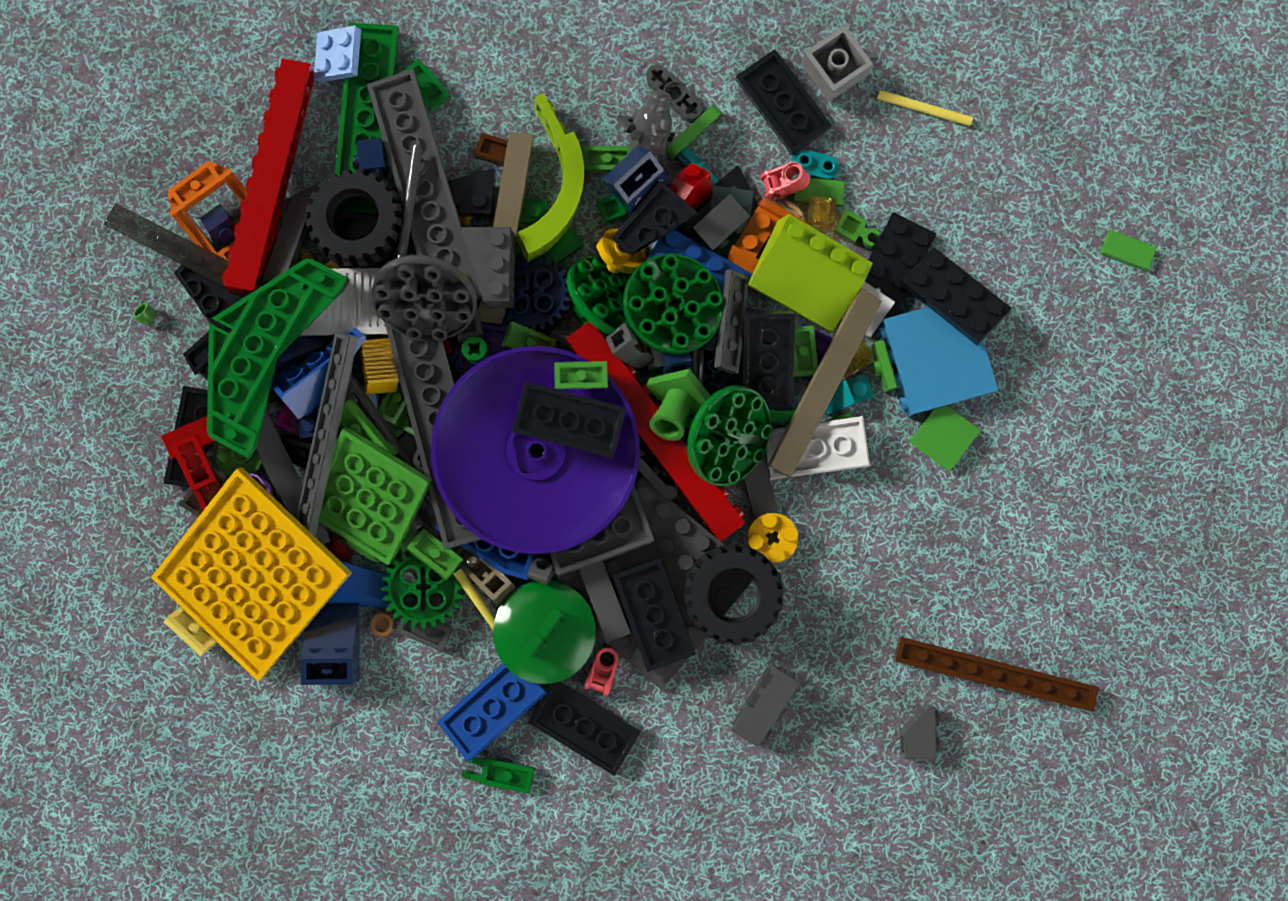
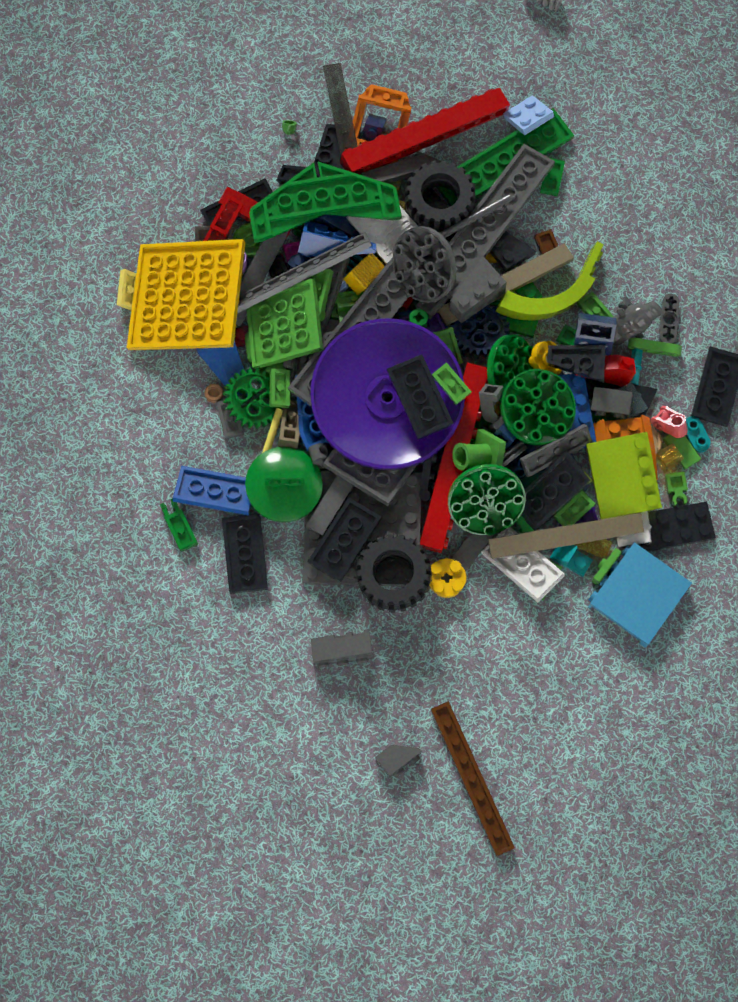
camera: 50 degrees right, 10 degrees down
(332, 647) = (179, 373): dark blue slope -> none
(372, 156) = (483, 178): dark blue brick -> none
(601, 674) = (285, 539): coral piece -> none
(944, 436) = (594, 636): bright green slope -> none
(955, 296) = (684, 574): black plate -> none

